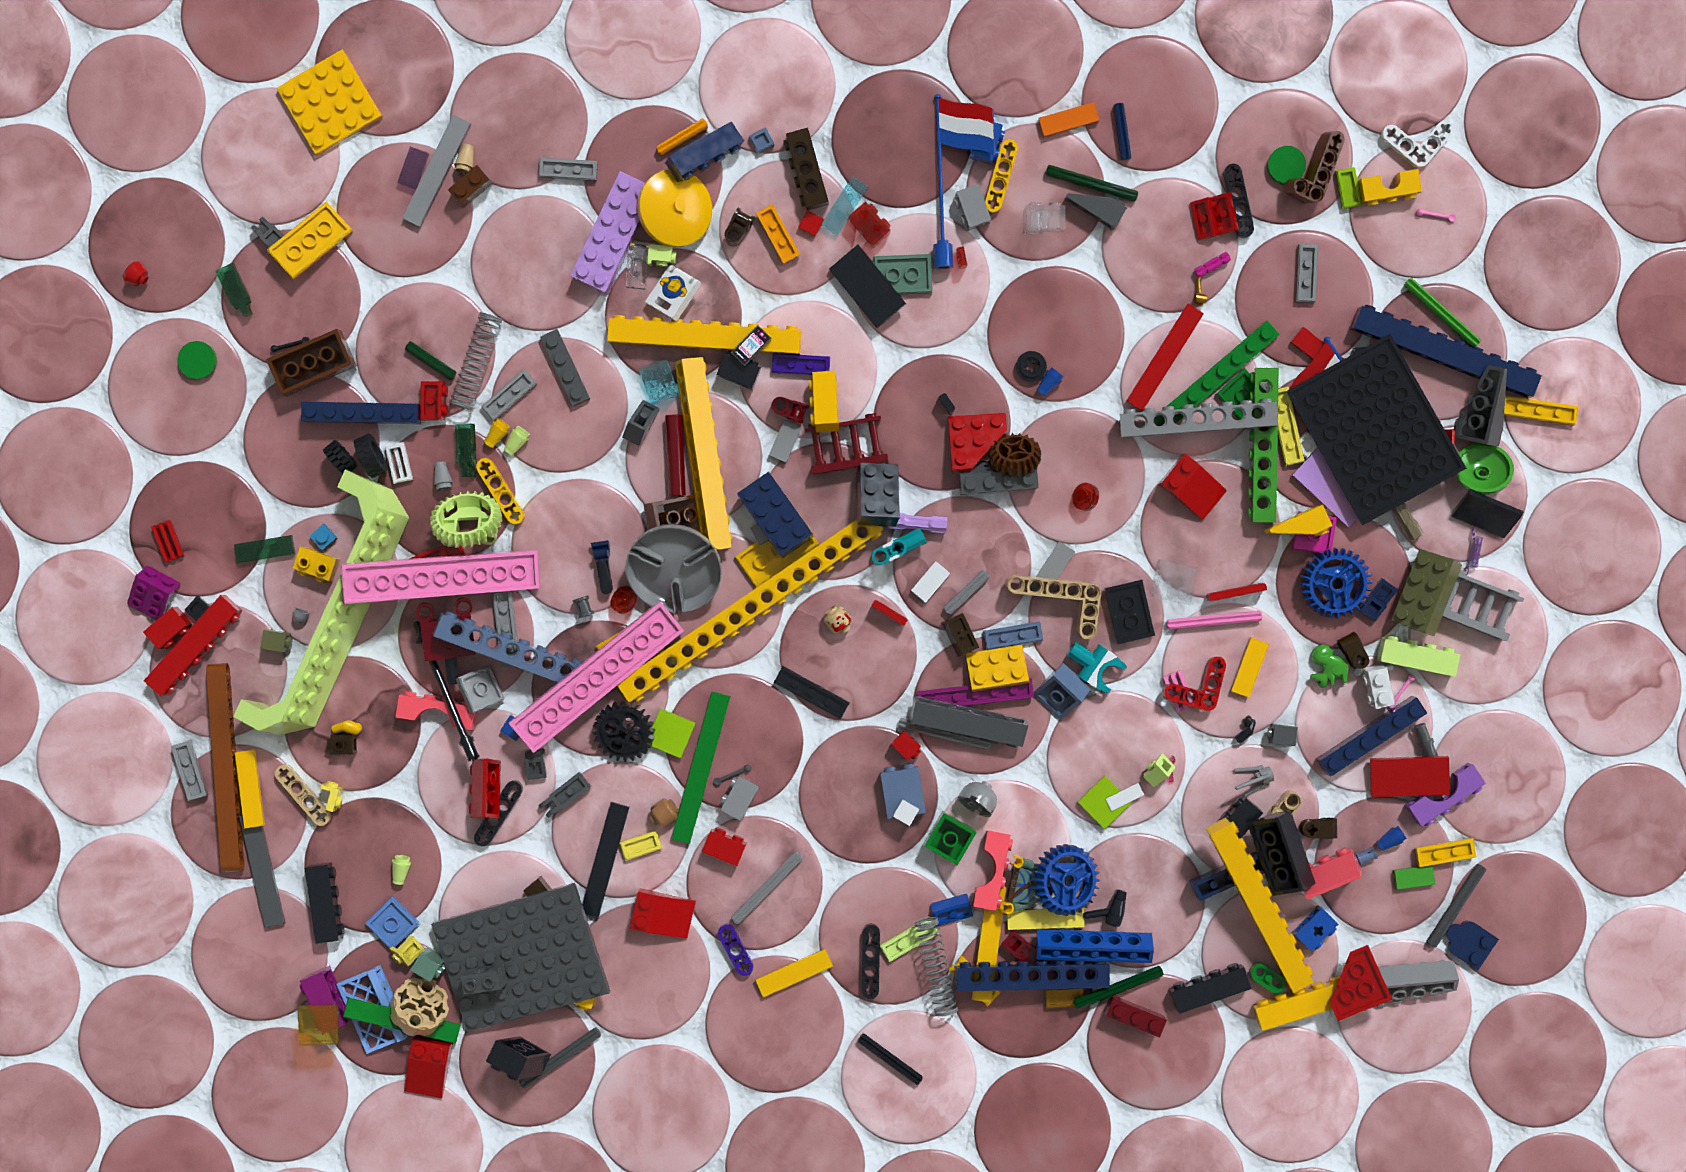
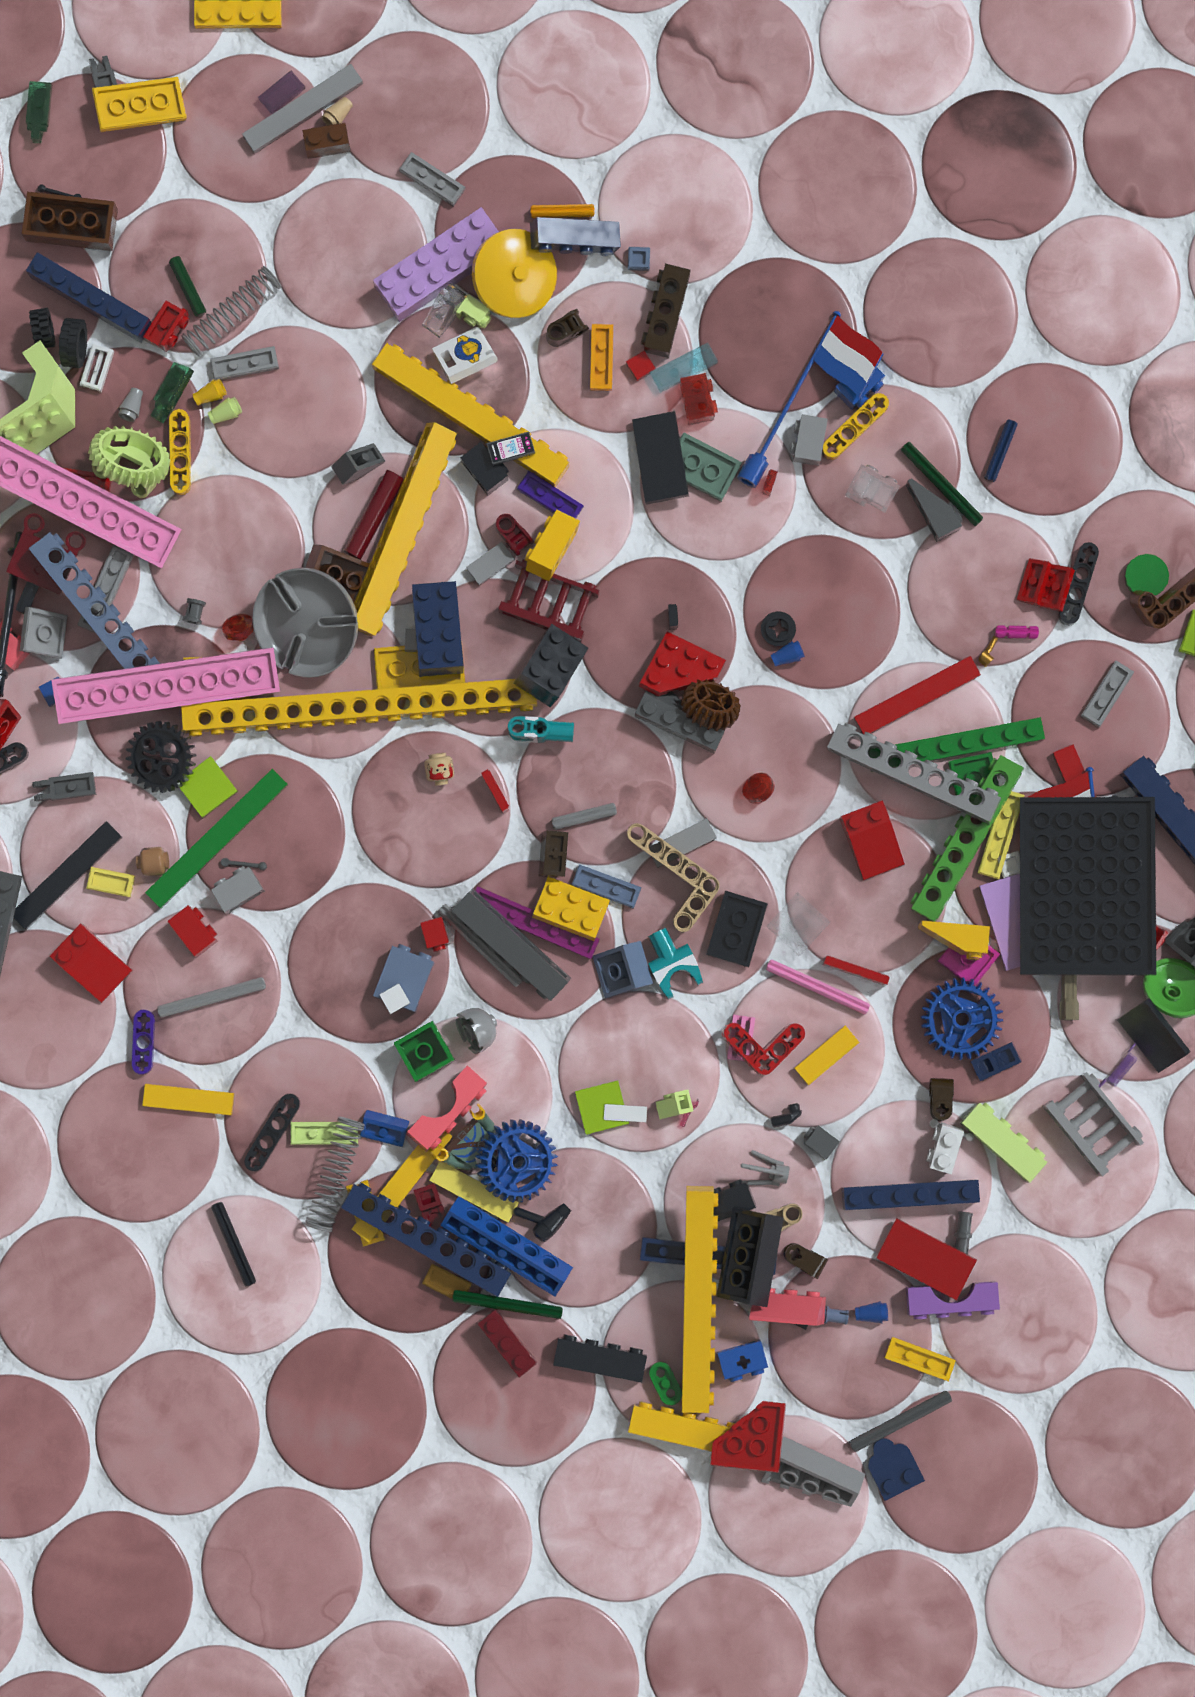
camera: 30 degrees right, 5 degrees down
(535, 764) = (54, 739): dark grey bracket -> none
(565, 367) = (315, 368): dark grey plate -> none
(601, 551) = (243, 567): piece -> none
(659, 382) = (399, 434): clear light blue bracket -> none
(811, 692) = (371, 827): black tile -> none
(930, 581) = (554, 785): white tile -> none
(933, 524) = (589, 728): lavender axle -> none
(1068, 119) = (954, 409): orange tile -> none
(1333, 666) = (912, 1101): bright green animal -> none
(1411, 678) = (984, 1160): bright pink hinge -> none
(1414, 877) = (873, 1366): bright green tile -> none
(1426, 592) = (1048, 1079): olive brick -> none

